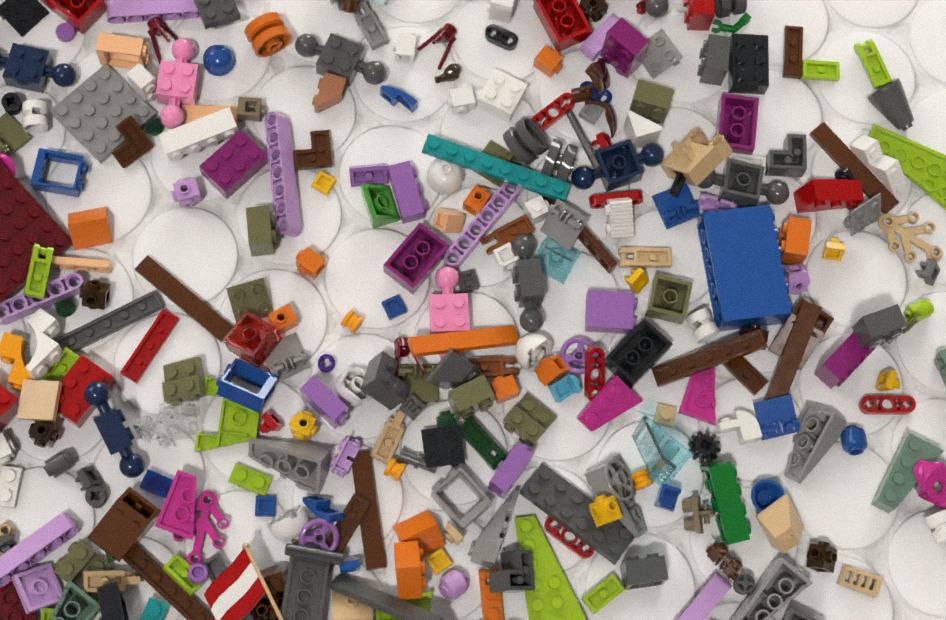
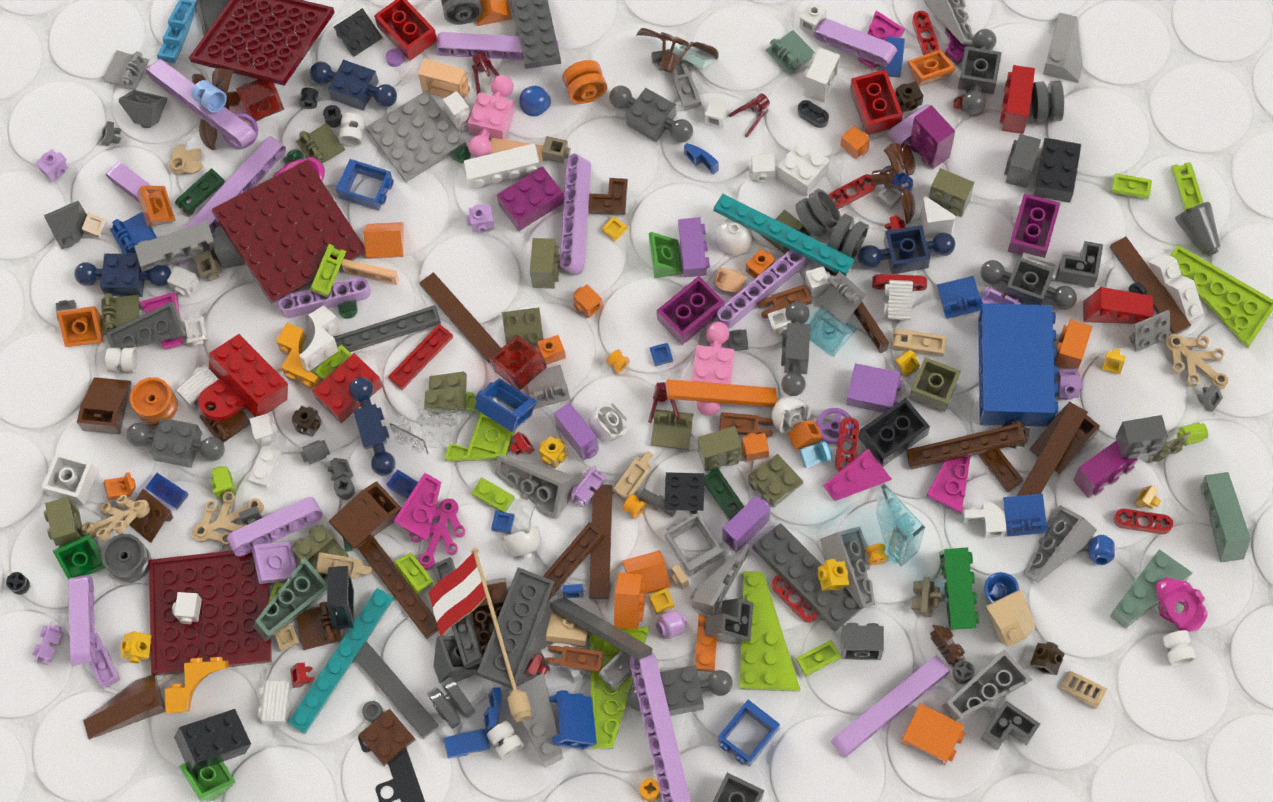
camera: 25 degrees right, 5 degrees down
(39, 400) = (307, 388): tan tile -> none
(95, 294) = (377, 301): dark brown brick -> none
(135, 144) = (441, 167): reddish brown plate -> none
(197, 573) = (426, 573): medium lavender tile -> none
(303, 538) = (553, 571): medium lavender piece -> none
(314, 554) = (540, 571): dark grey axle -> none
(321, 366) = (591, 395): dark purple bush -> none
(321, 508) = (556, 531): blue slope -> none
(330, 92) = (636, 143): nougat slope -> none
(368, 174) = (659, 225): medium lavender slope -> none
(382, 384) = (635, 423): dark grey brick -> none
(412, 406) = (661, 450): dark grey tile -> none
(446, 419) = (692, 465): clear green plate -> none
(450, 74) = (756, 142): dark brown animal -> none
(453, 371) = (705, 419): dark grey slope -> none
(583, 140) = (876, 221): dark grey bar -> none
(618, 479) = (852, 548): light grey wheel -> none
(660, 54) = (968, 149): light grey hinge -> none
(665, 415) = (912, 497): tan plate -> none
(667, 497) = (900, 575): blue panel -> none
(694, 159) = (983, 252): tan piece -> none
(702, 324) = (965, 414): white wheel -> none
(702, 453) = (950, 527): black gear -> none
(744, 20) = (1061, 128): green arm -> none
(792, 52) = (1106, 165): reddish brown tile -> none

